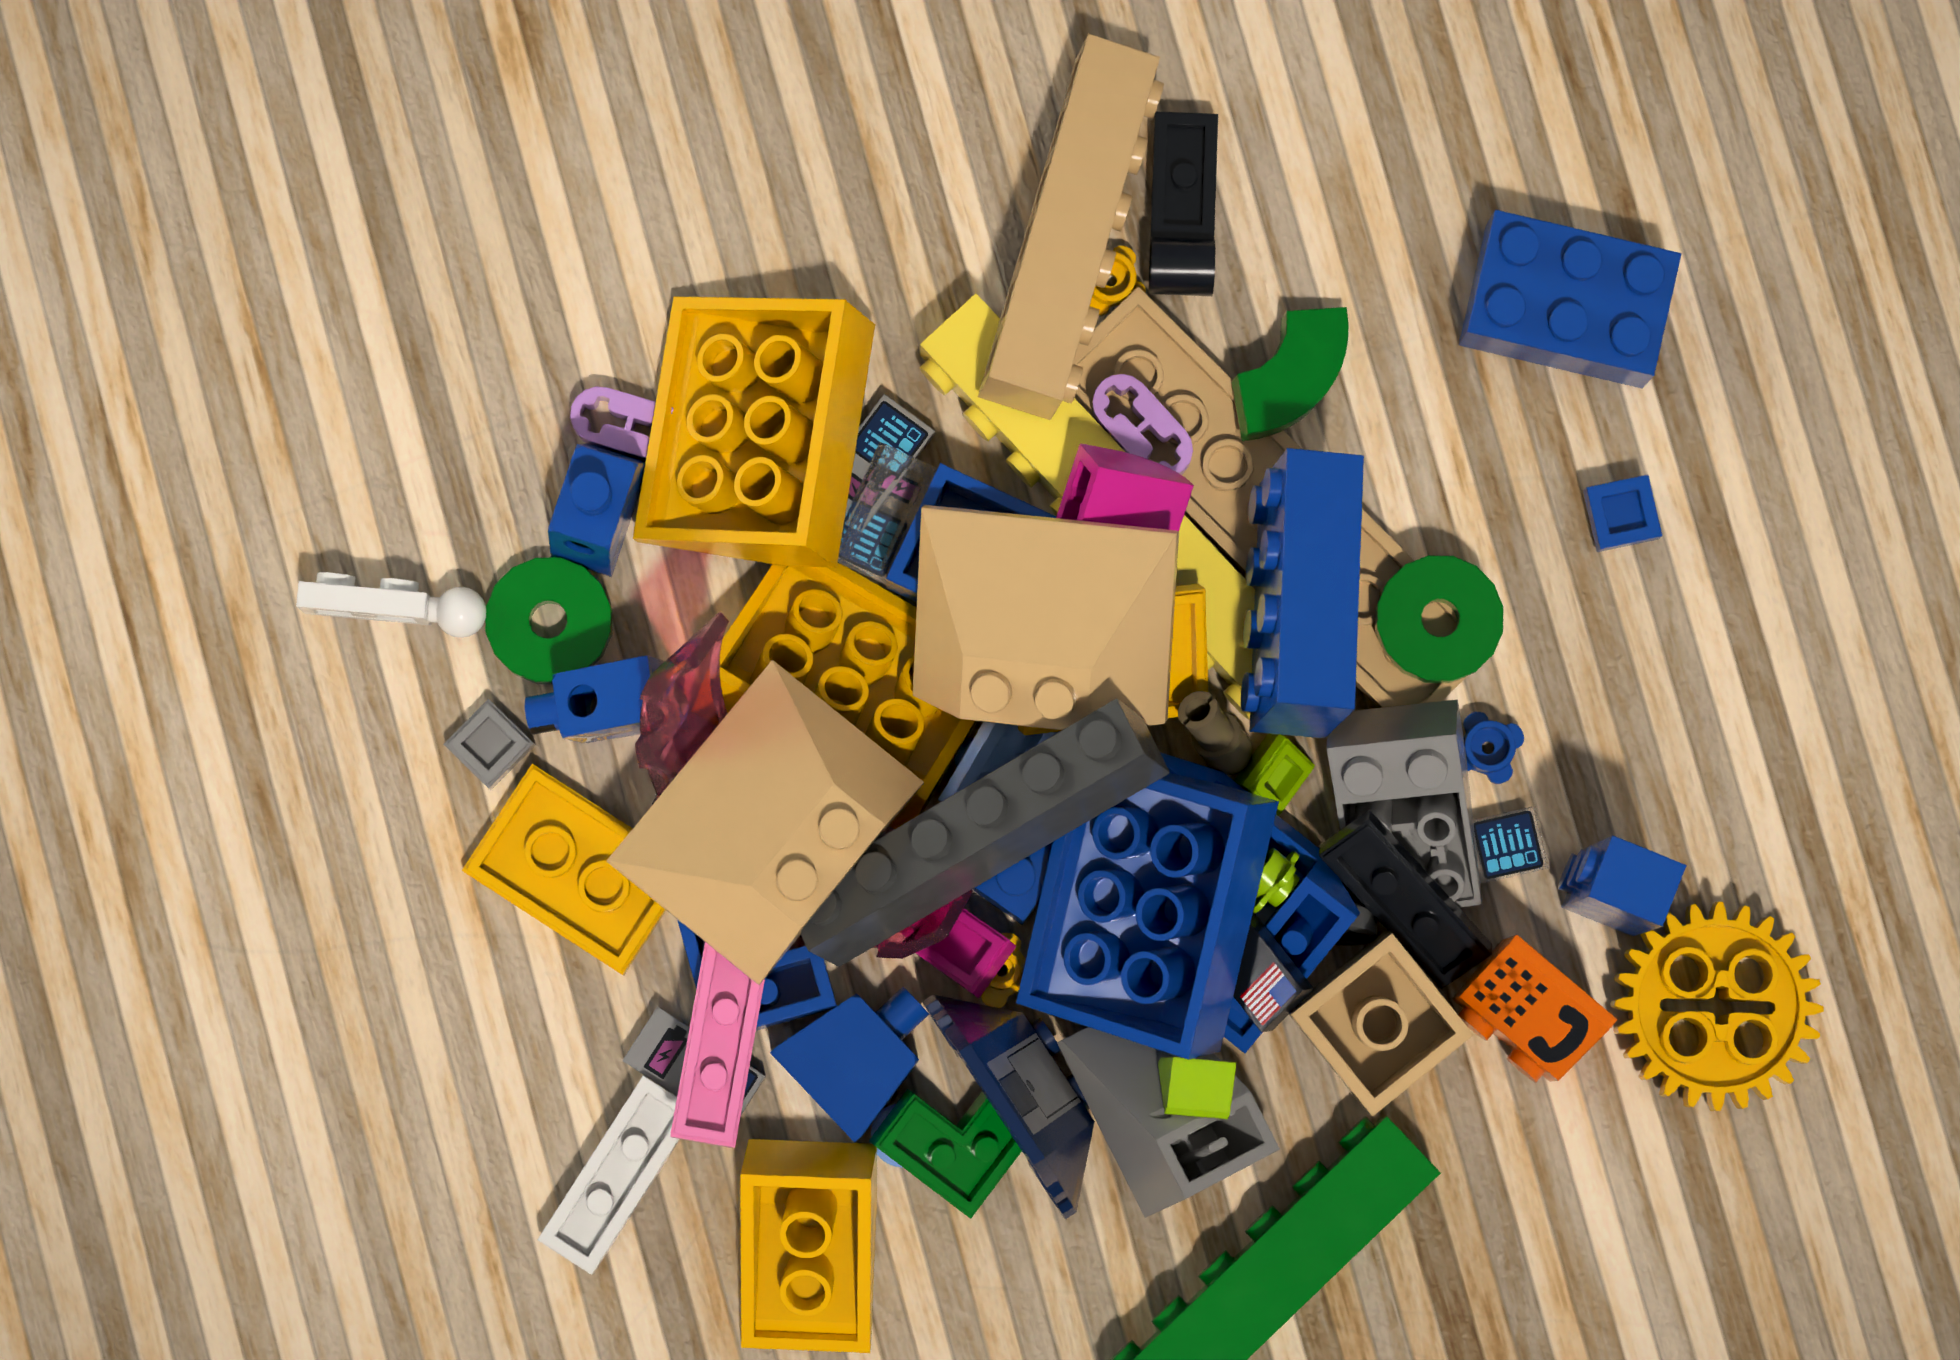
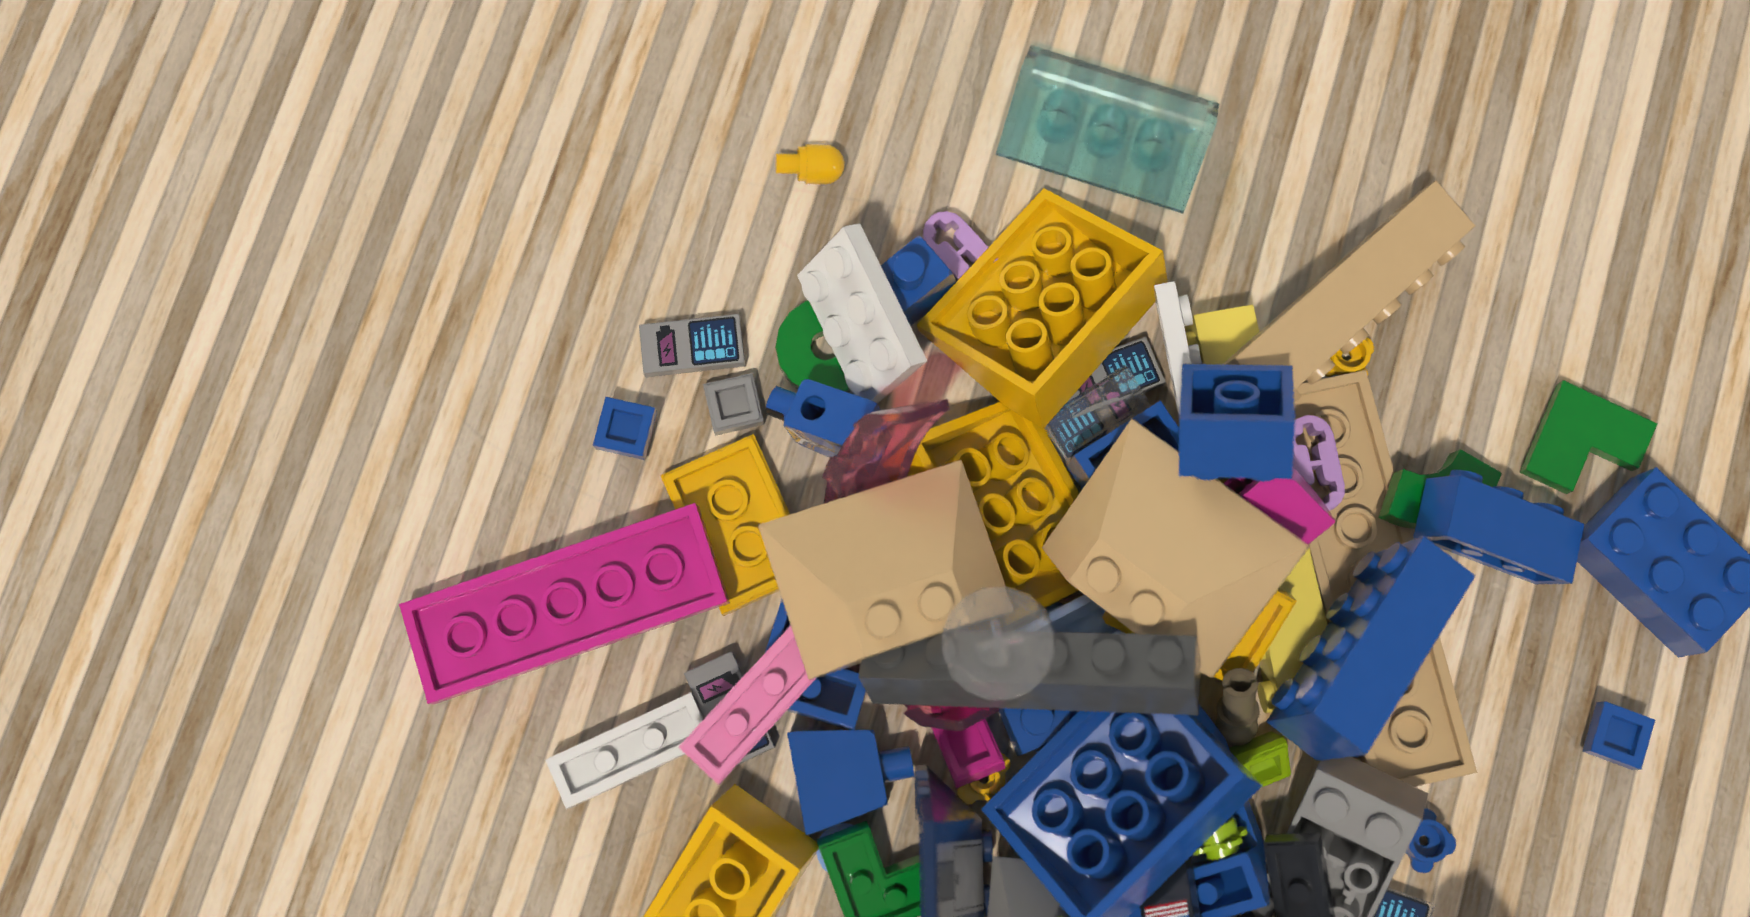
camera: 35 degrees right, 5 degrees down
(391, 844) = (625, 428): none -> blue plate
(403, 709) = (691, 345): none -> tile
(404, 427) = (812, 164): none -> yellow cylinder
(450, 1069) = (563, 604): none -> dark pink plate
(457, 611) = (732, 270): white plate -> none
(569, 570) = (861, 315): none -> white plate
(701, 187) = (1107, 129): none -> clear light blue slope
(926, 829) = (998, 643): none -> clear tile
(938, 404) = (1173, 315): none -> white plate
(1027, 449) = (1236, 421): none -> blue brick
(1183, 204) = (1429, 335): black plate -> none
(1372, 375) = (1499, 528): none -> blue brick
(1395, 203) = (1582, 424): none -> green tile
(1444, 581) = (1477, 728): green tile -> none

